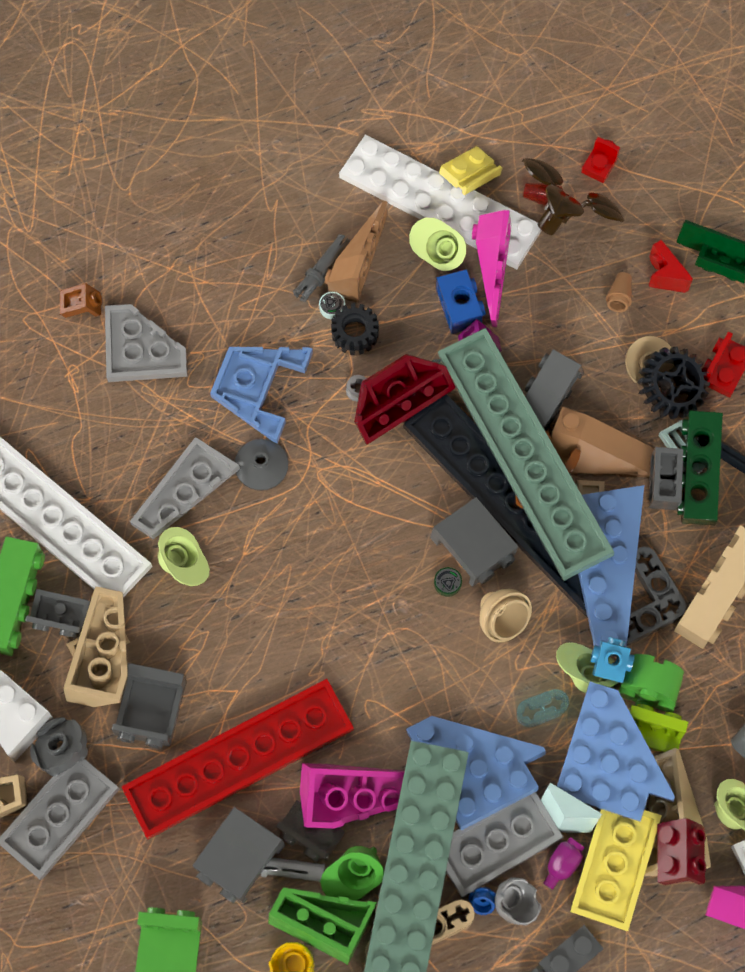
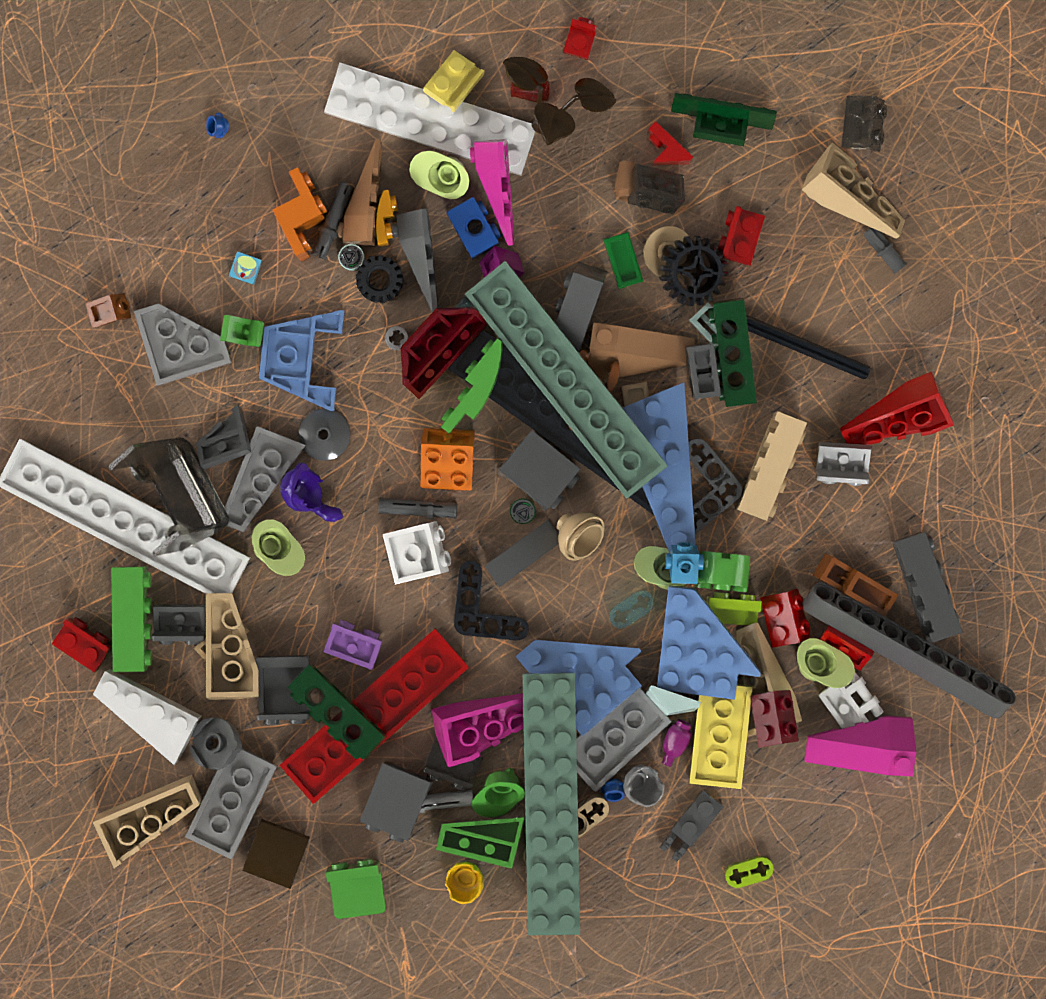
camera: 15 degrees left, 20 degrees up
(90, 886) = (276, 853): none -> dark brown slope
(101, 471) = (182, 488): none -> clear smoke windscreen
(158, 445) = (224, 441): none -> dark grey wing
(180, 700) = (370, 735): none -> dark green brick
(205, 346) = (242, 331): none -> bright green bracket
(224, 510) = (304, 494): none -> dark purple piece
(225, 293) = (245, 268): none -> tile
(234, 163) = (217, 125): none -> blue plate
(236, 676) = (353, 645): none -> medium lavender bracket
(293, 249) = (300, 214): none -> orange bracket
(327, 596) = (417, 552): none -> white plate
(349, 556) = (418, 508): none -> dark grey pin
(371, 671) = (472, 611): none -> black beam
(375, 272) = (385, 211): none -> light orange slope
(380, 513) = (447, 459): none -> orange bracket
(399, 304) = (416, 241): none -> dark grey wedge
(436, 437) = (483, 378): none -> bright green slope
(438, 622) = (523, 553): none -> dark grey slope
(602, 364) = (623, 260): none -> green tile
(649, 303) = (657, 189): none -> clear smoke bracket
(709, 753) = (785, 618): none -> red bracket

